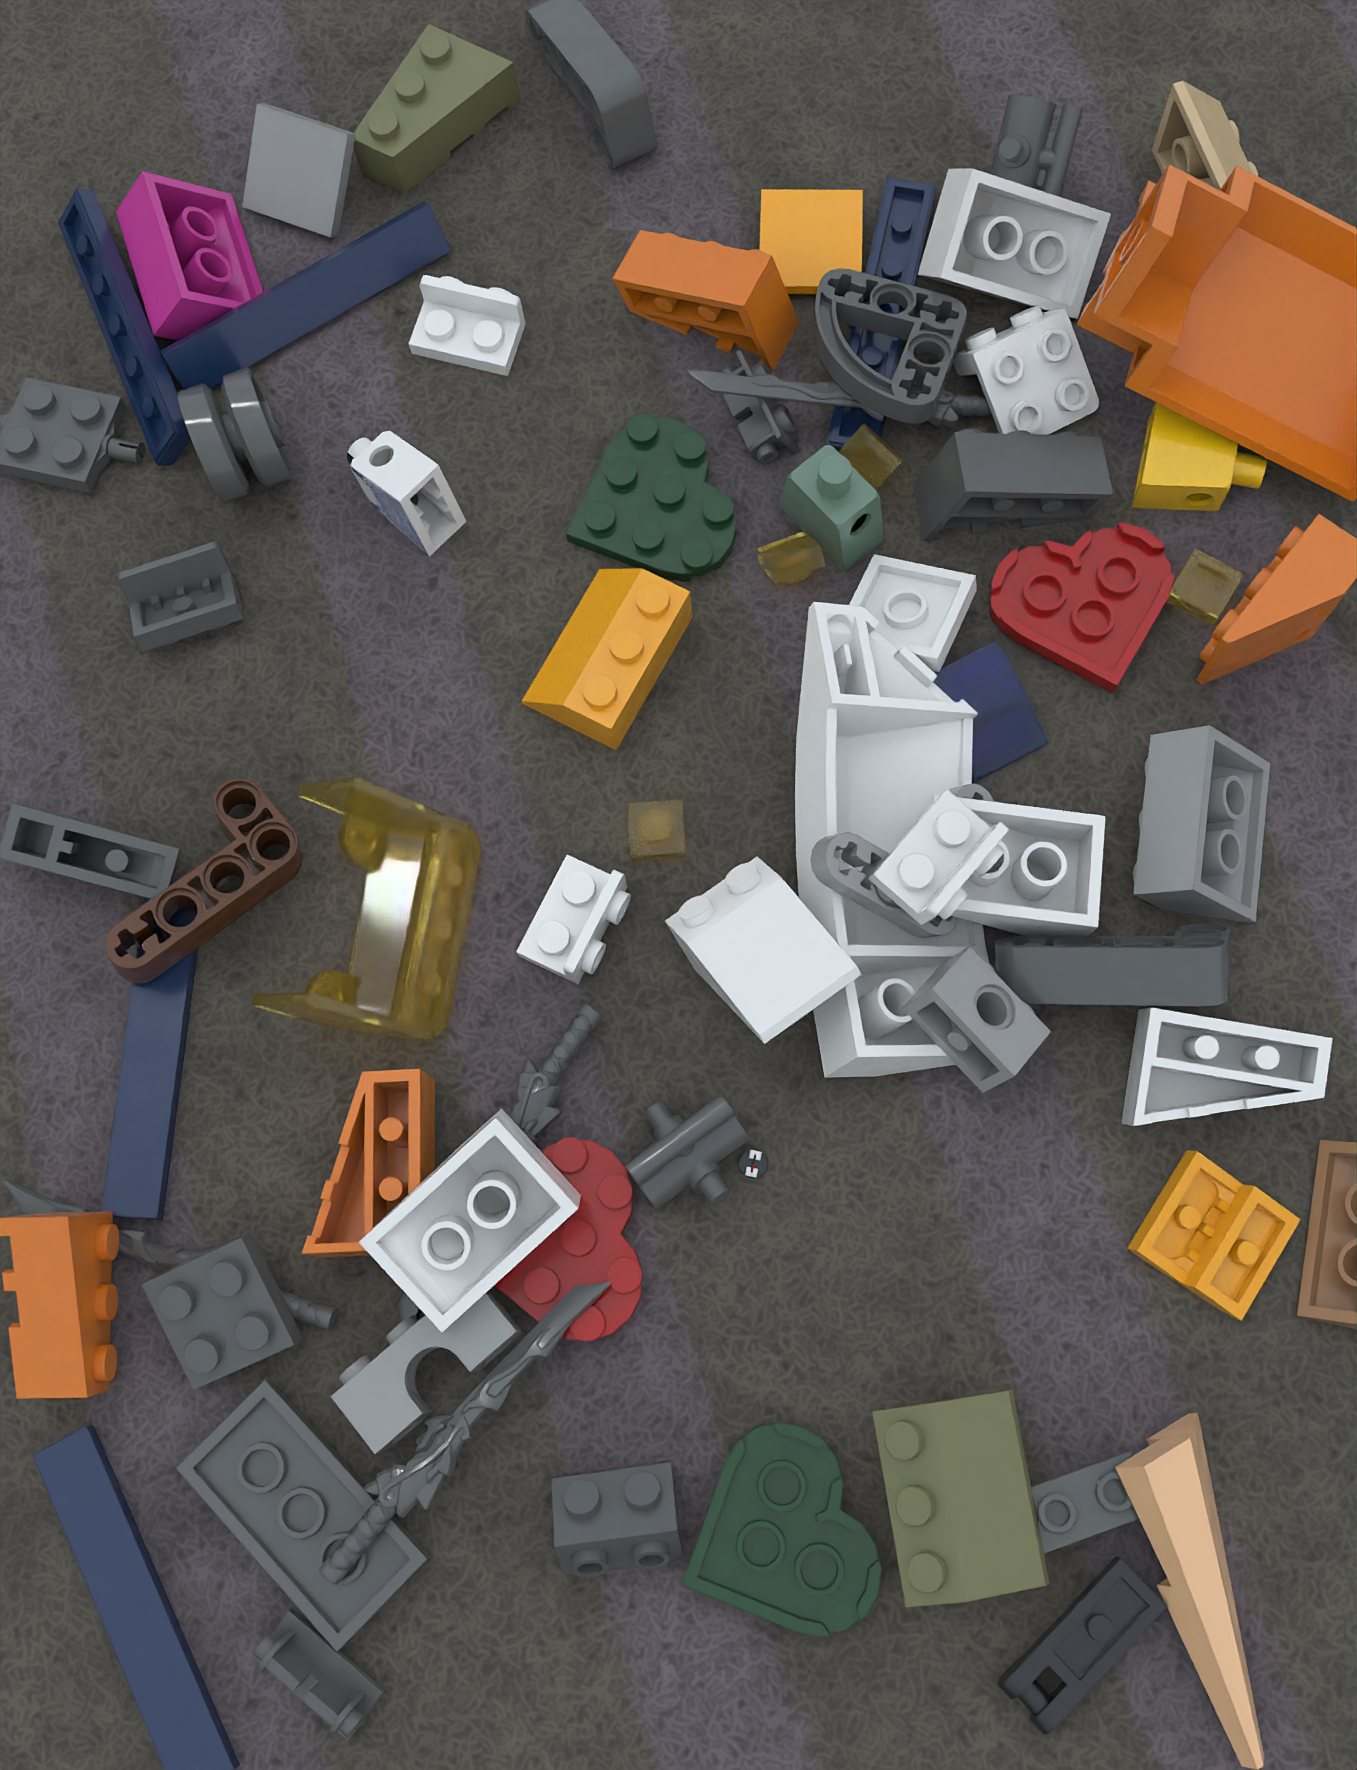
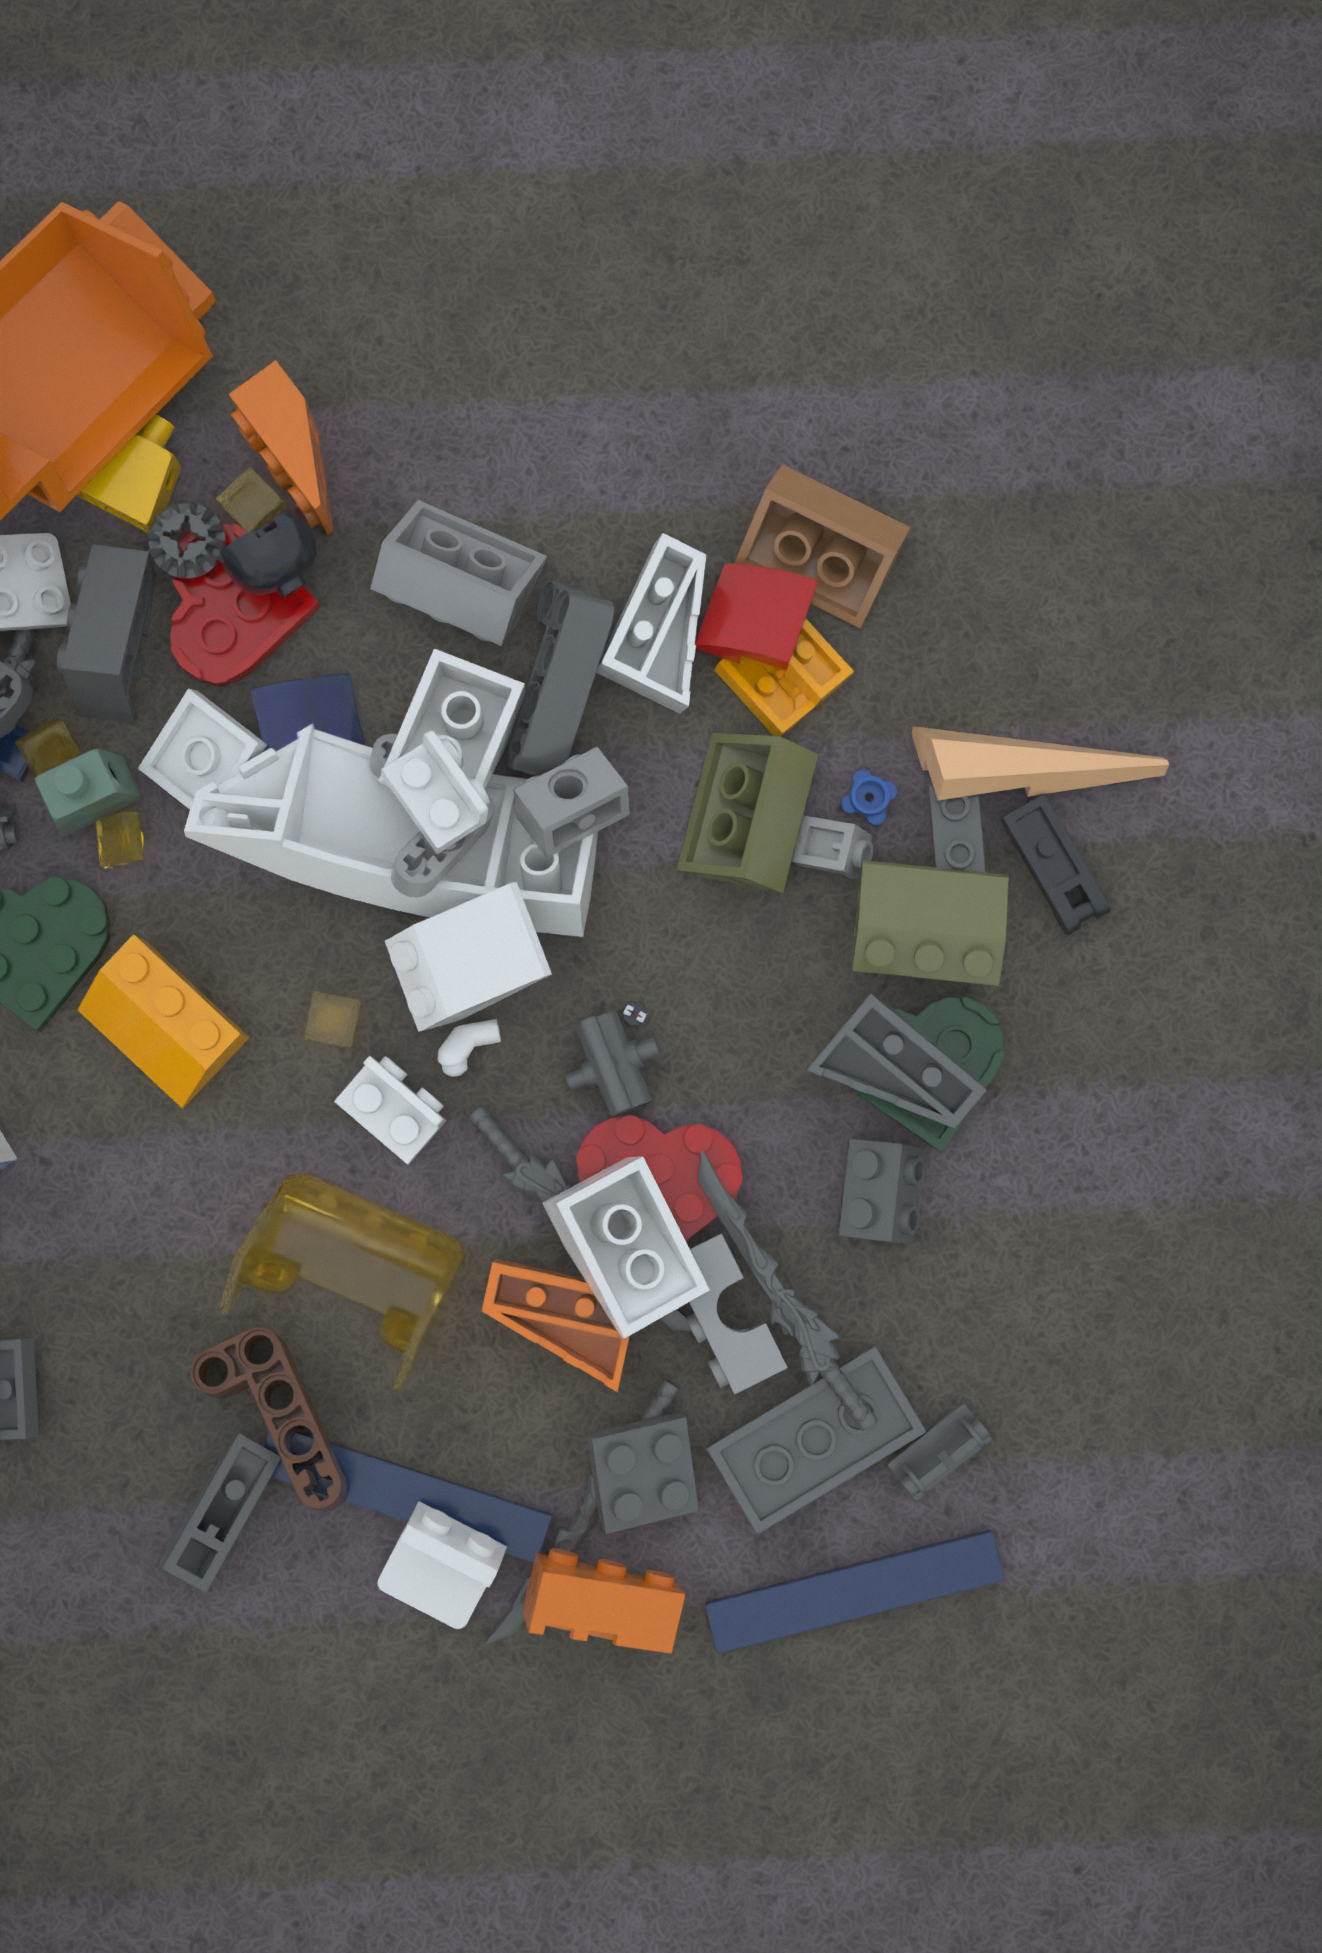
camera: 85 degrees left, 10 degrees up
(78, 1107) = (441, 1566): none -> white bracket
(668, 974) = (462, 1040): none -> white arm
(771, 1502) = (898, 1063): none -> dark grey wedge
(1018, 1349) = (832, 846): none -> light grey bracket
(1031, 1235) = (748, 811): none -> olive slope
(1105, 1392) = (881, 791): none -> blue plate
(1123, 545) = (199, 556): none -> dark grey gear
(1153, 614) = (272, 556): none -> black cylinder
(1271, 1181) = (756, 614): none -> red slope

